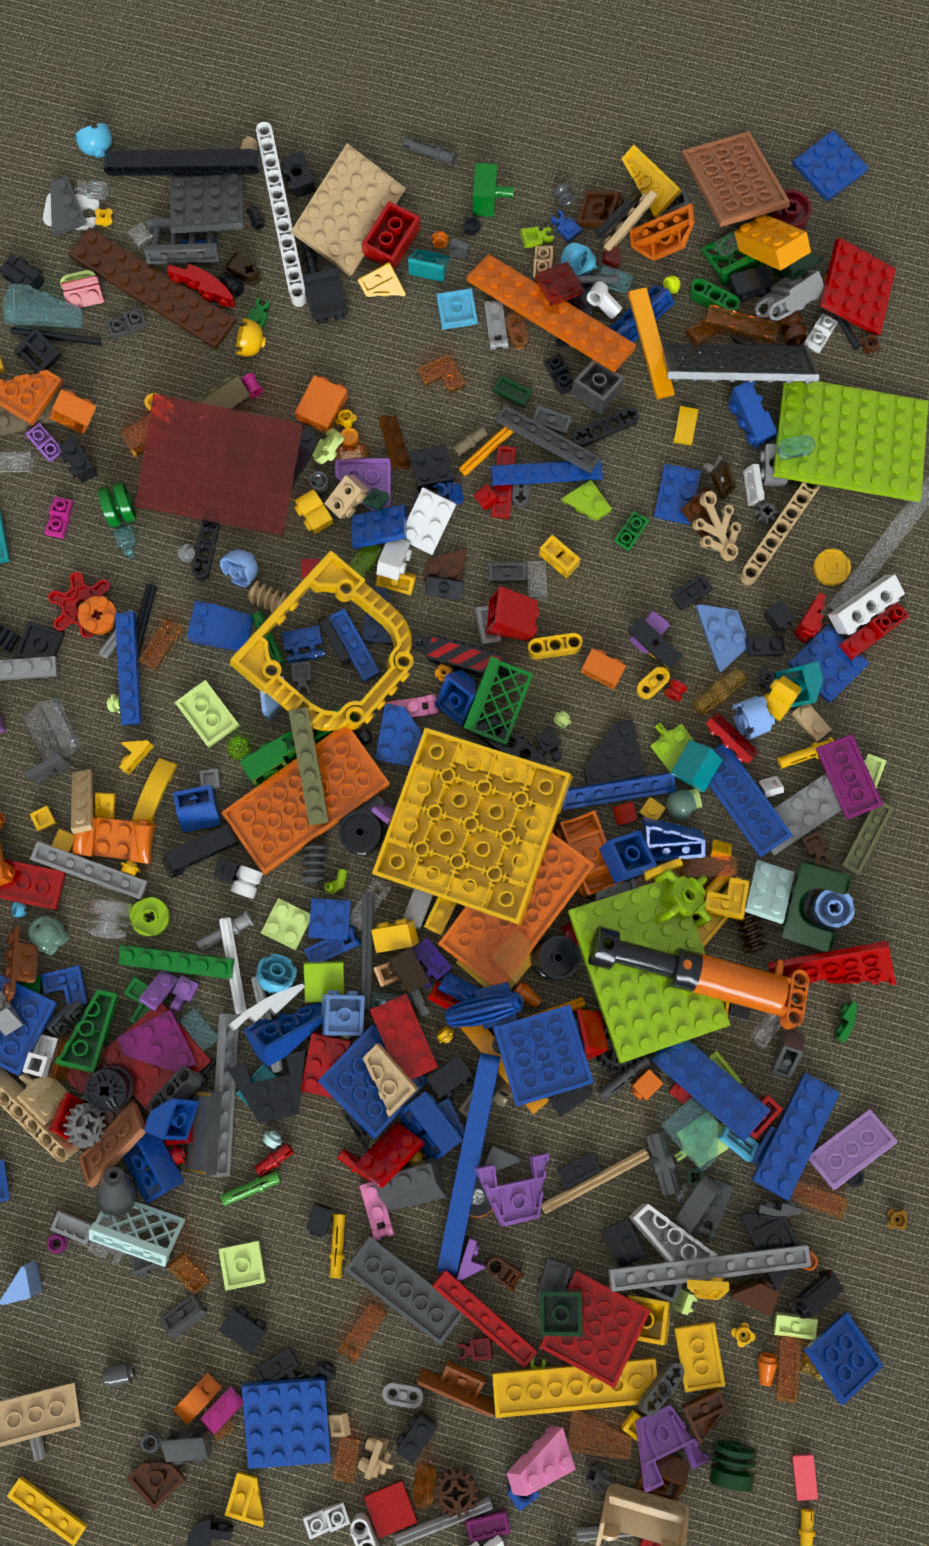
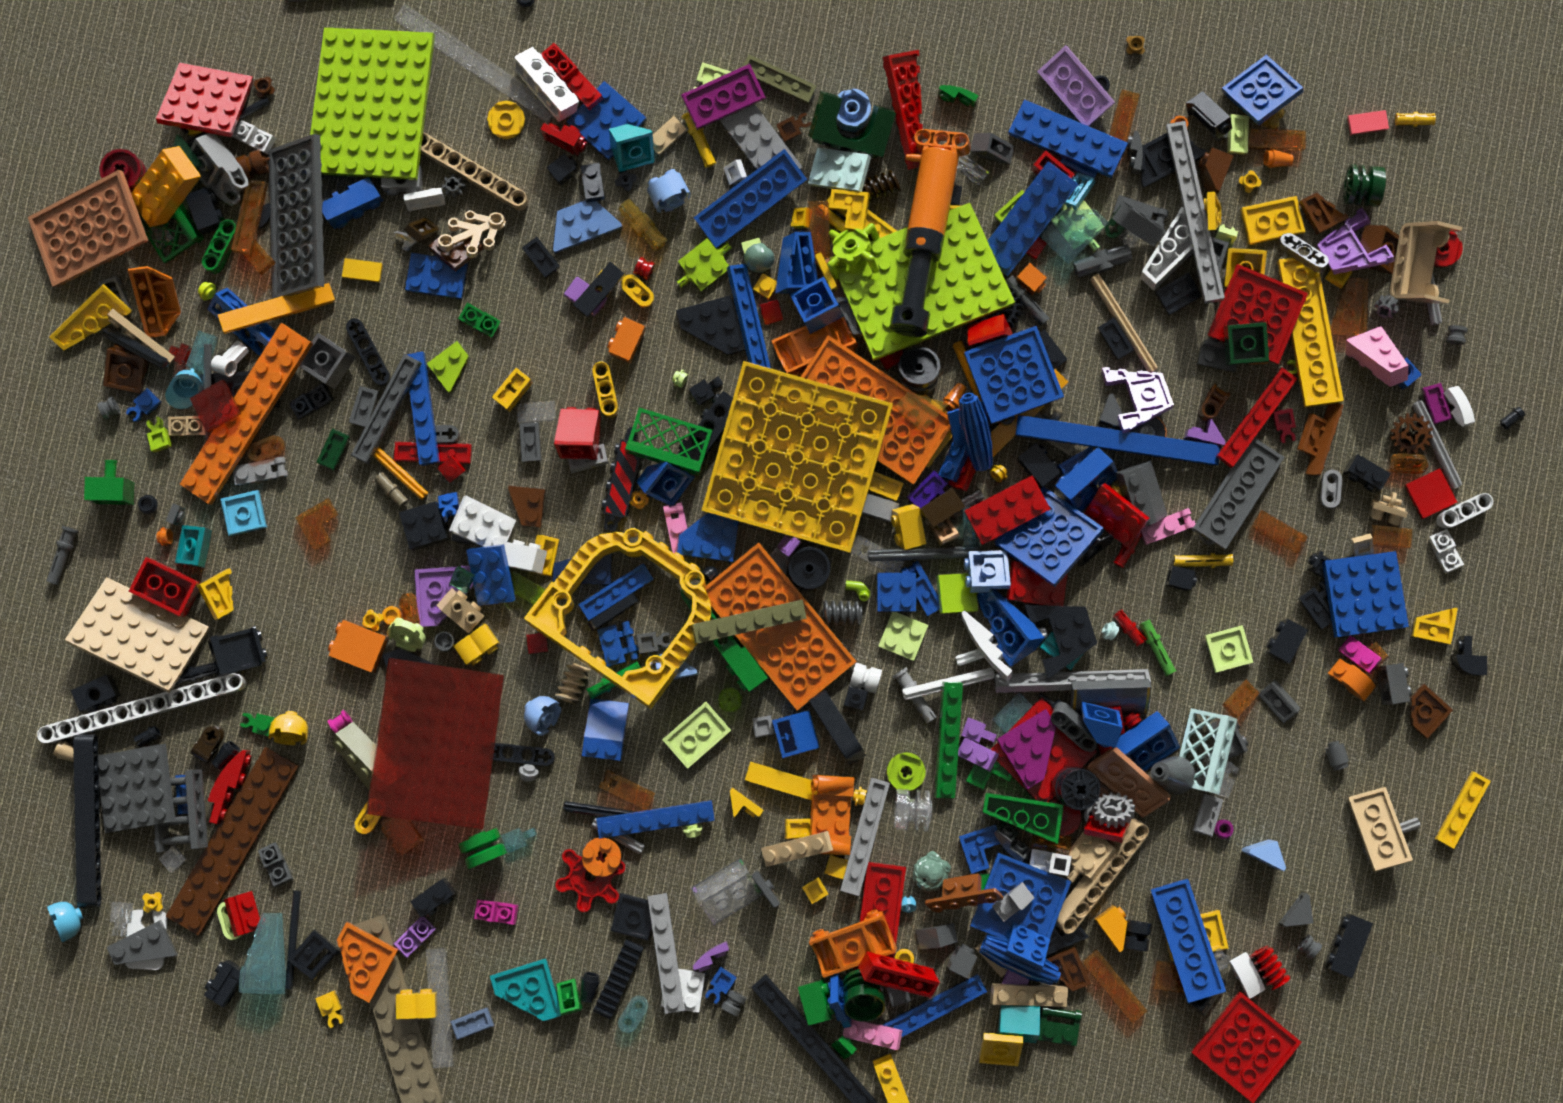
camera: 95 degrees left, 5 degrees up
(72, 411) = (383, 905): orange brick -> none
(146, 1446) = (1399, 720): dark grey plate -> none
(275, 973) = (954, 639): medium azure cylinder -> none
(390, 1079) = (1049, 517): tan wing -> none
(394, 442) = (396, 567): reddish brown plate -> none
(444, 587) = (550, 504): black plate -> none
(696, 765) = (720, 243): teal slope -> none
(732, 738) = (691, 210): red plate -> none
(781, 697) = (646, 163): yellow brick -> none
(794, 446) = (388, 157): clear light blue plate -> none
(830, 165) = (63, 132): blue plate -> none

